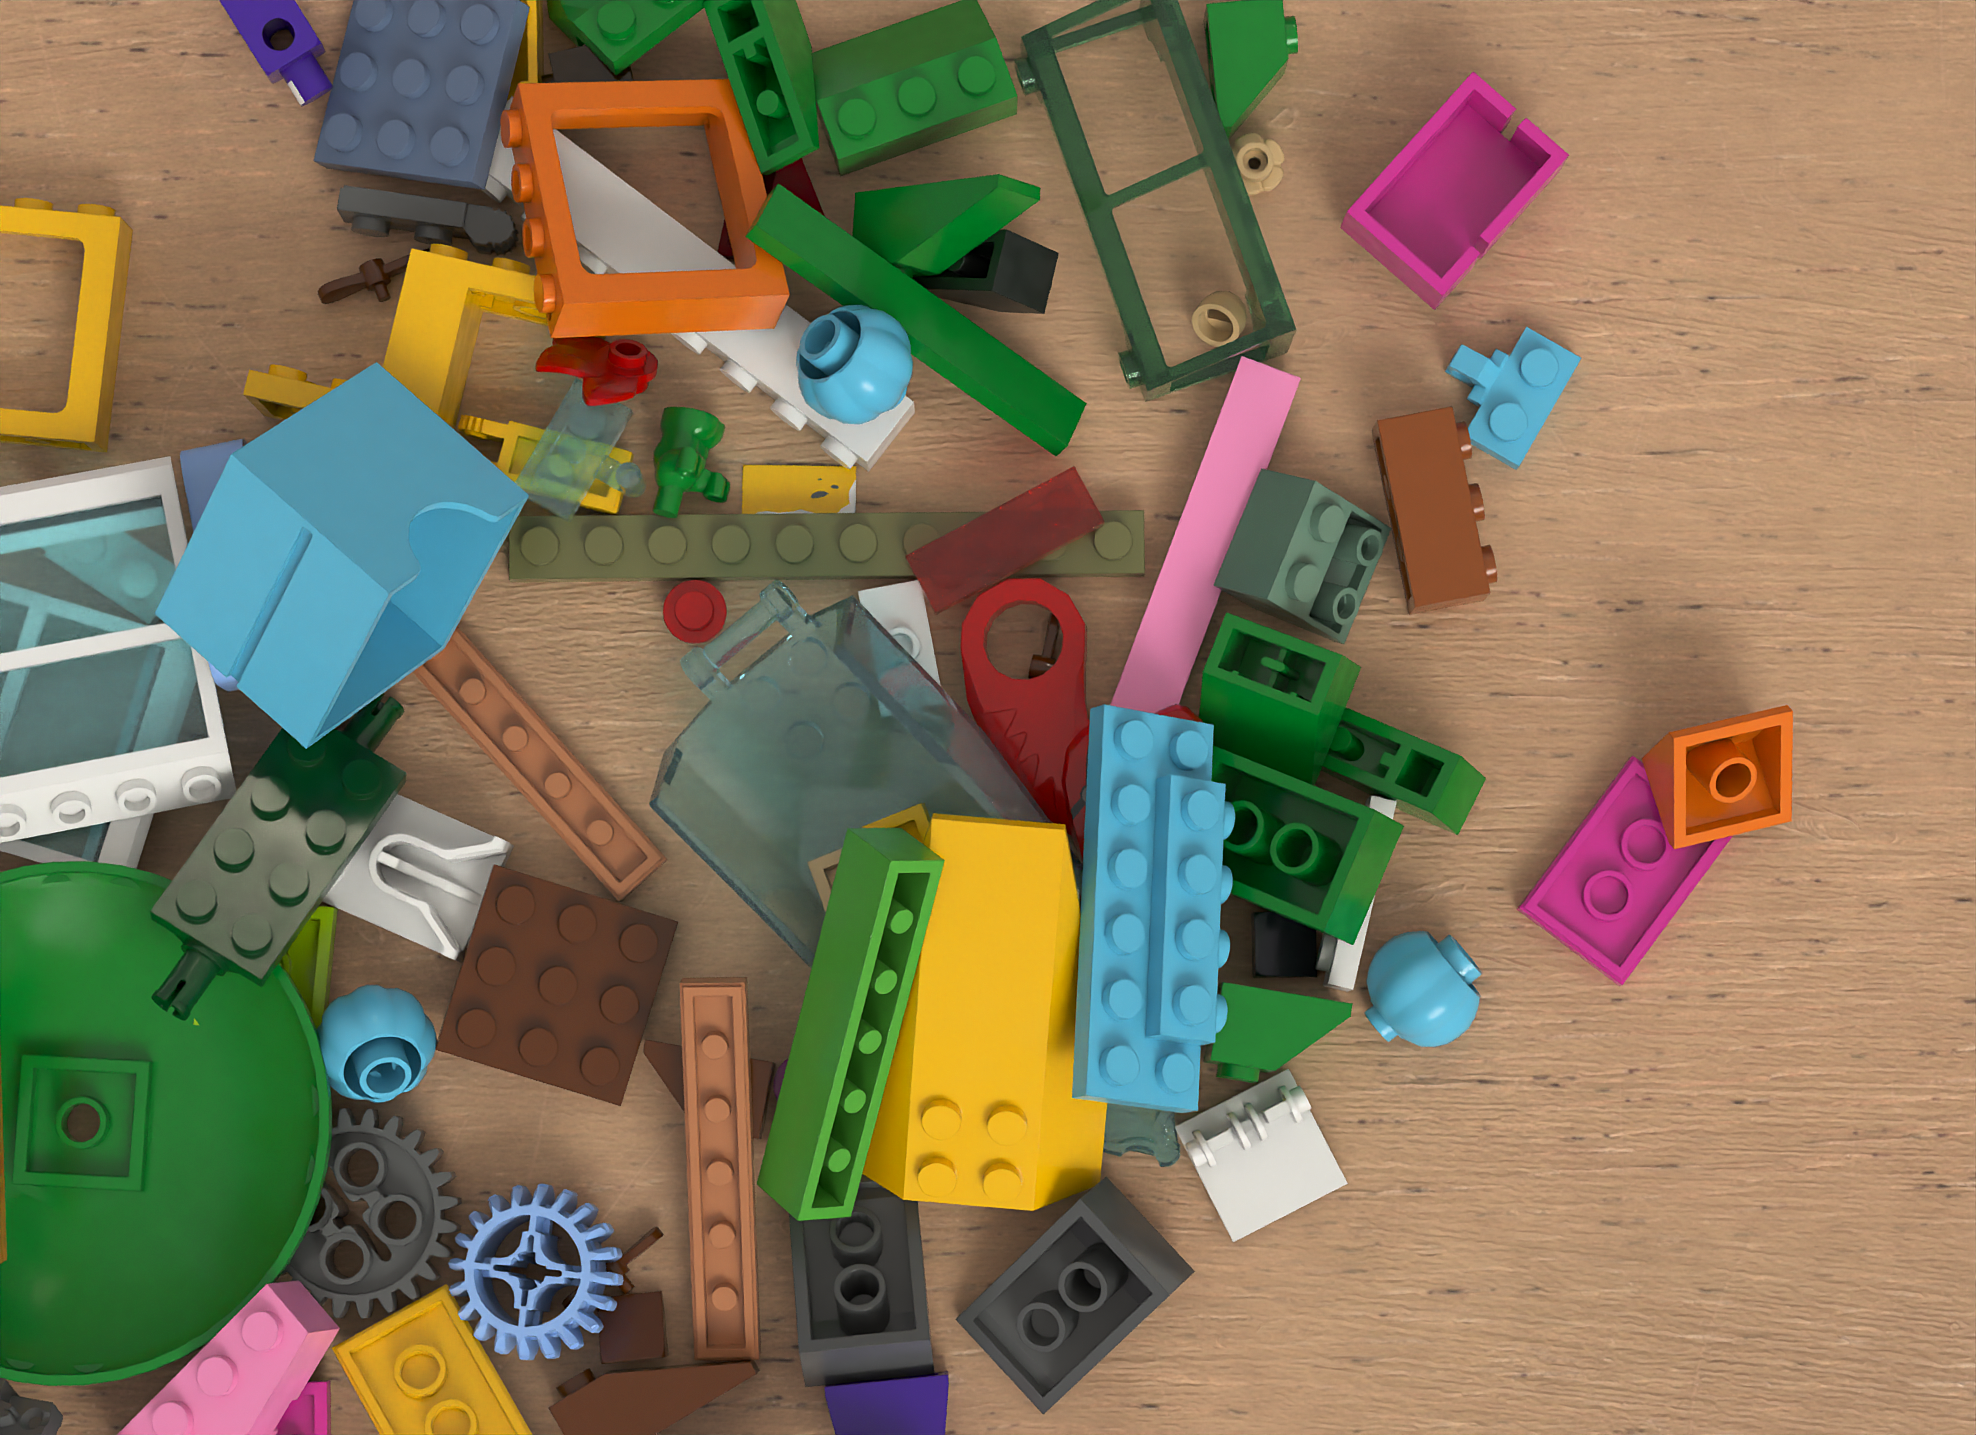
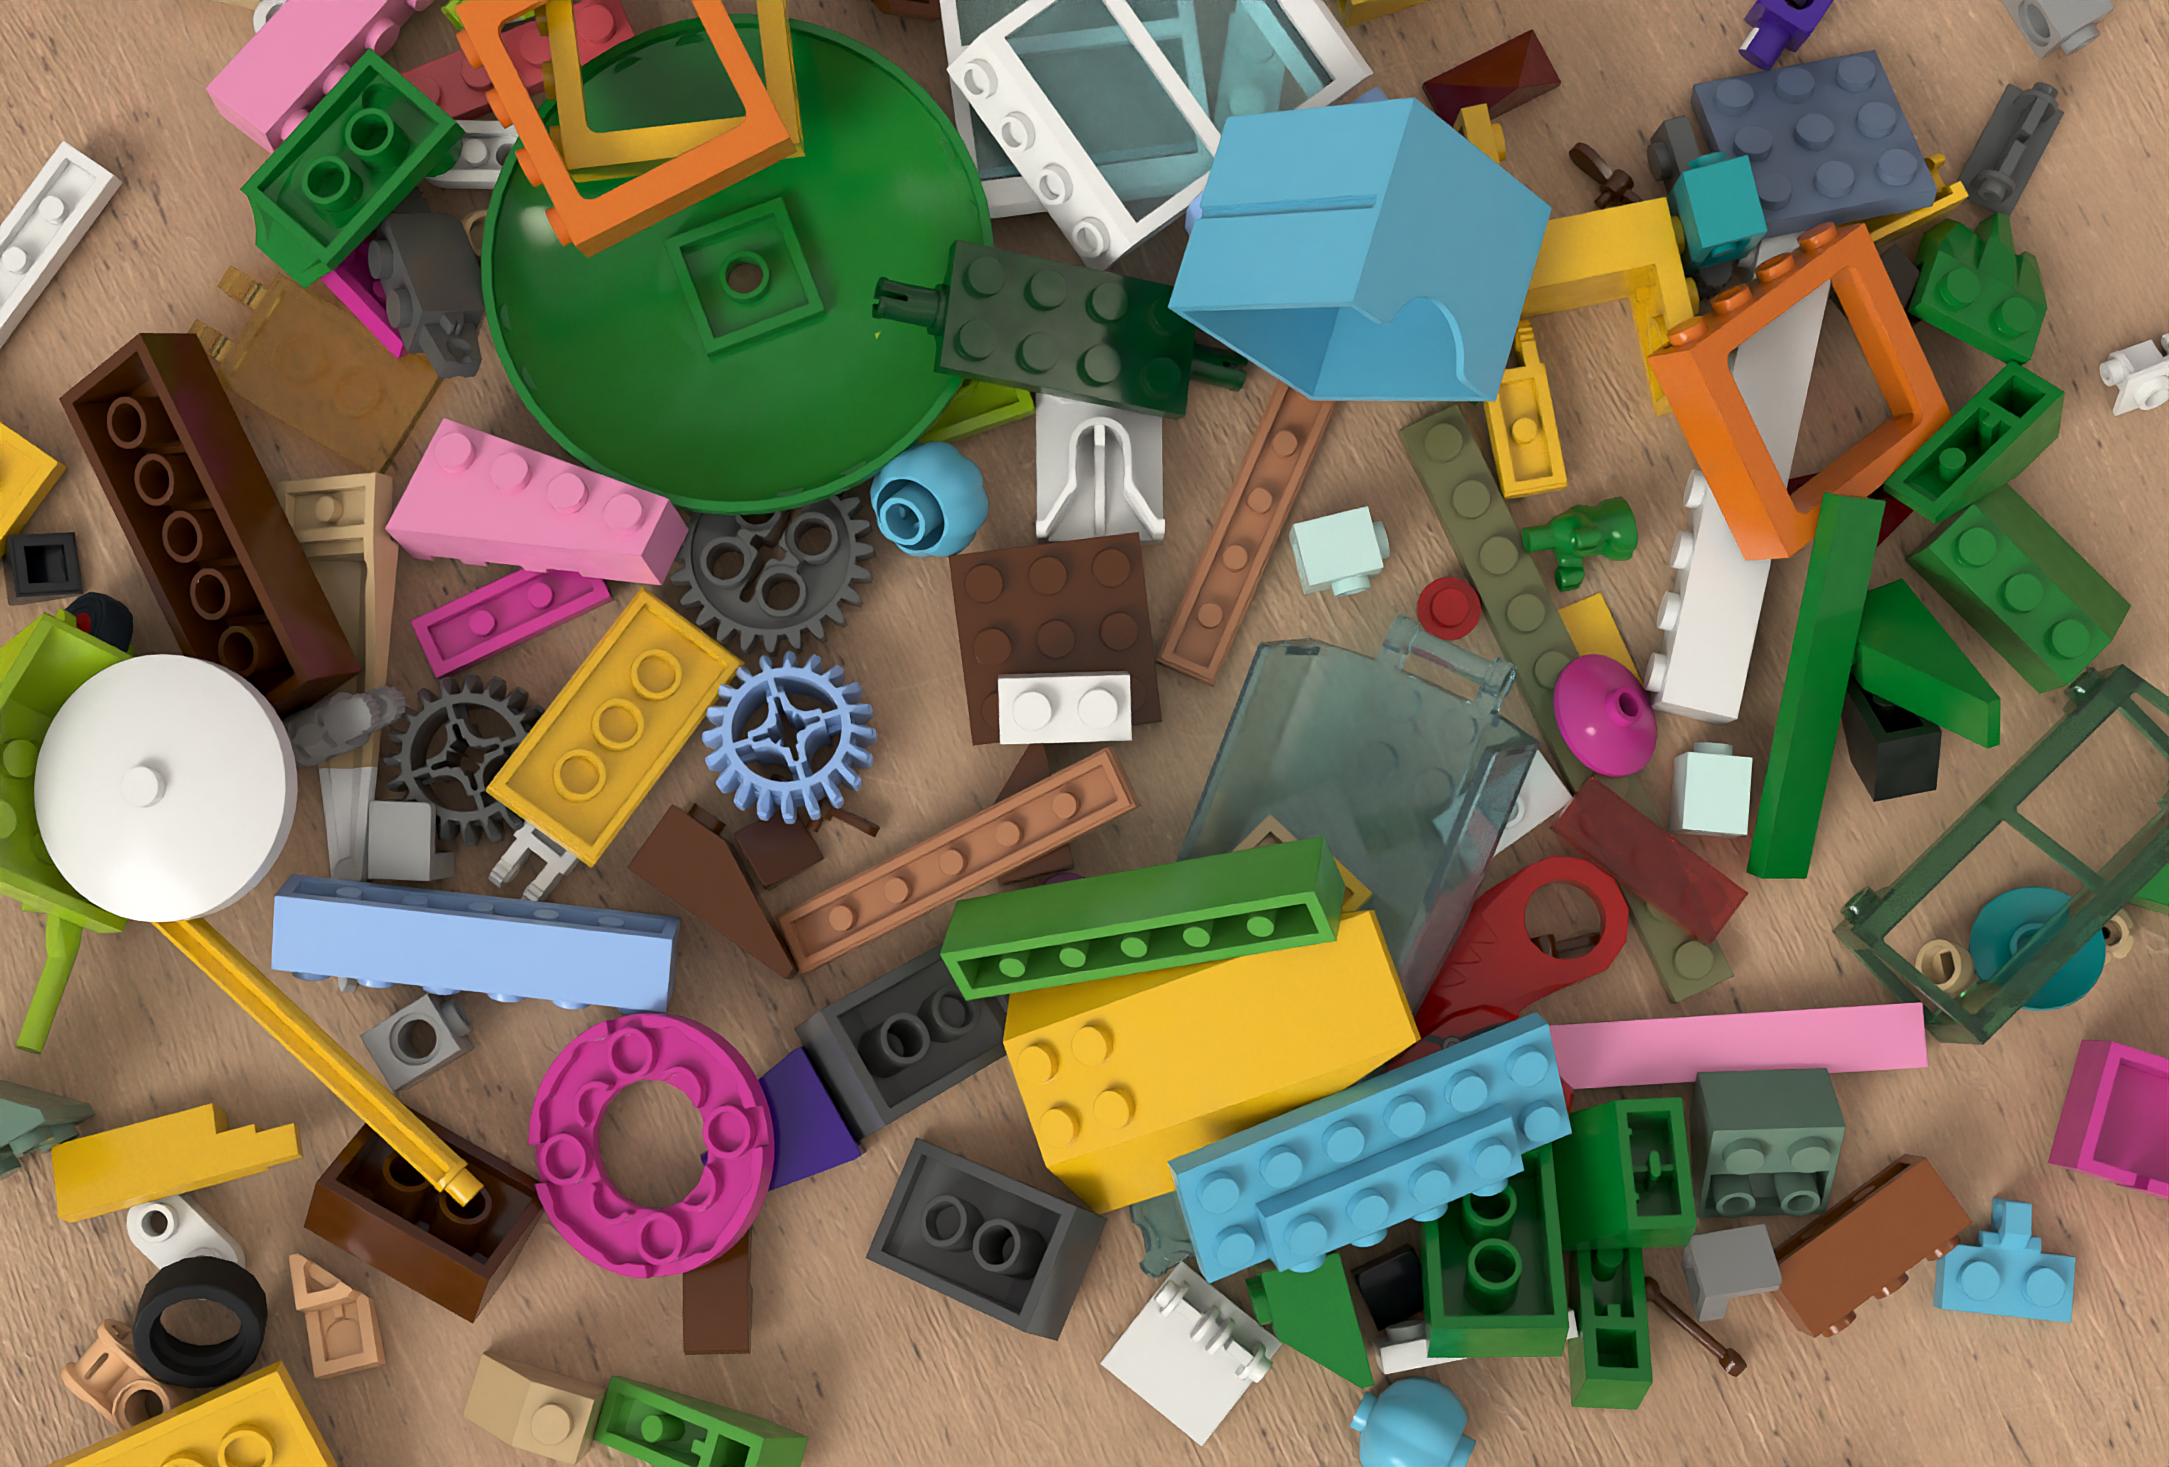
camera: 65 degrees right, 0 degrees up
(223, 341) = (1498, 77): none -> dark red slope
(445, 210) = (1717, 210): none -> teal brick
(577, 452) = (1545, 435): clear light blue plate -> none
(597, 687) = (1339, 552): none -> light aqua brick
(608, 369) = (1631, 427): red plate -> none
(625, 1005) = (1064, 707): none -> white brick
(854, 364) = (1752, 647): medium azure plant -> none
(857, 516) = (1605, 715): none -> dark pink dish
(969, 454) = (1710, 792): none -> light aqua brick
(1206, 242) = (2010, 922): none -> teal dish
(1394, 639) = (1728, 1266): none -> light grey panel
(1480, 674) = (1728, 1358): none -> reddish brown hinge

